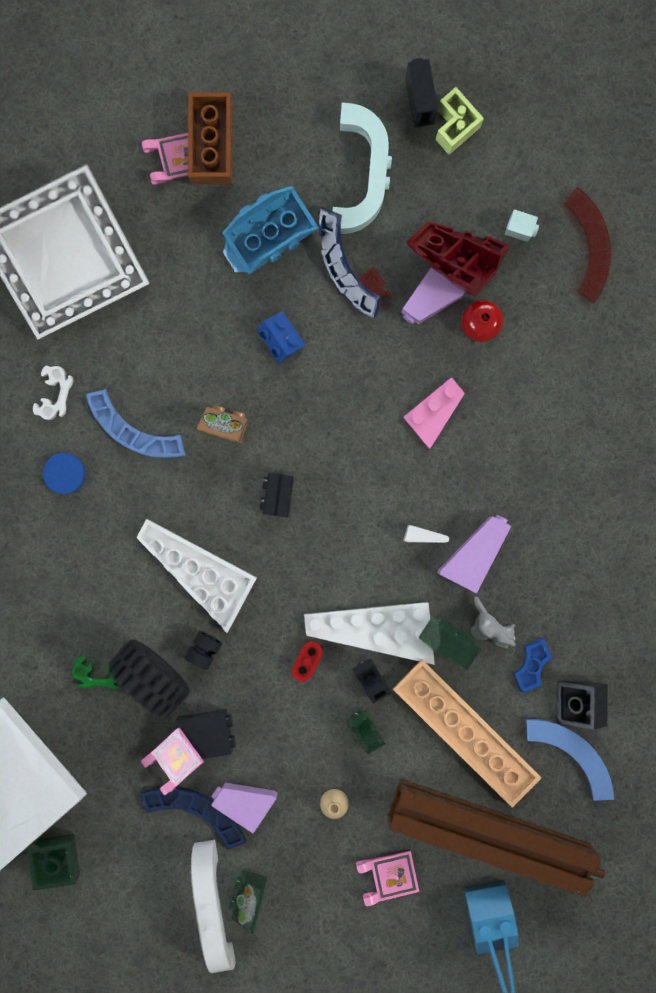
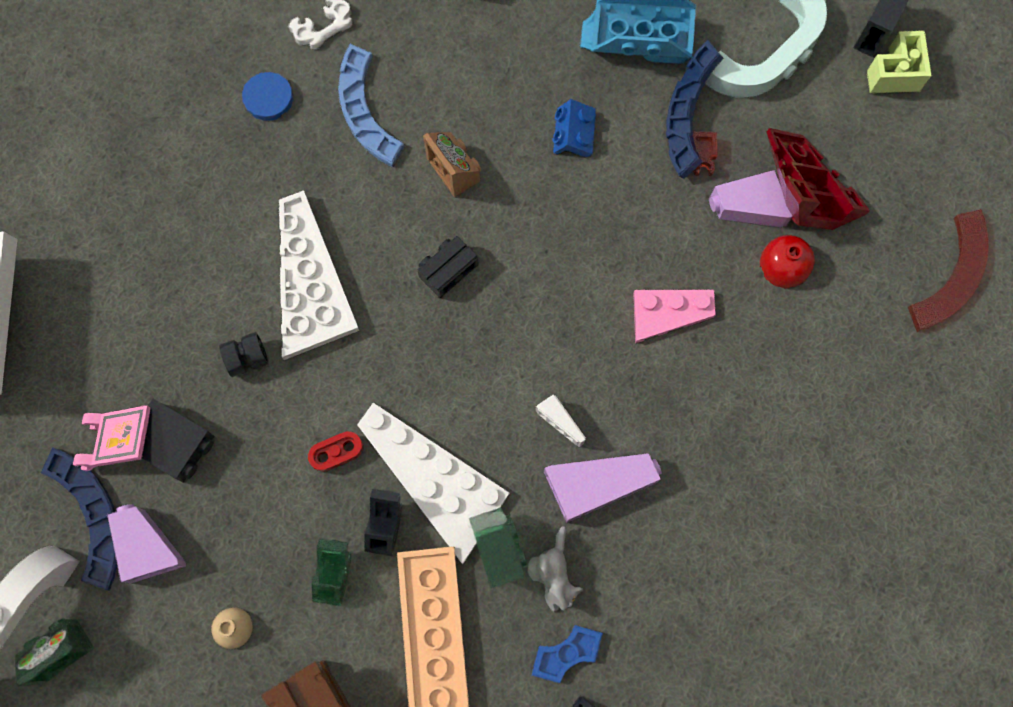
camera: 30 degrees right, 15 degrees down
(81, 672) = (112, 284): green helmet -> none
(148, 678) = (164, 328): black tyre -> none
(522, 226) = (896, 202): light aqua brick -> none

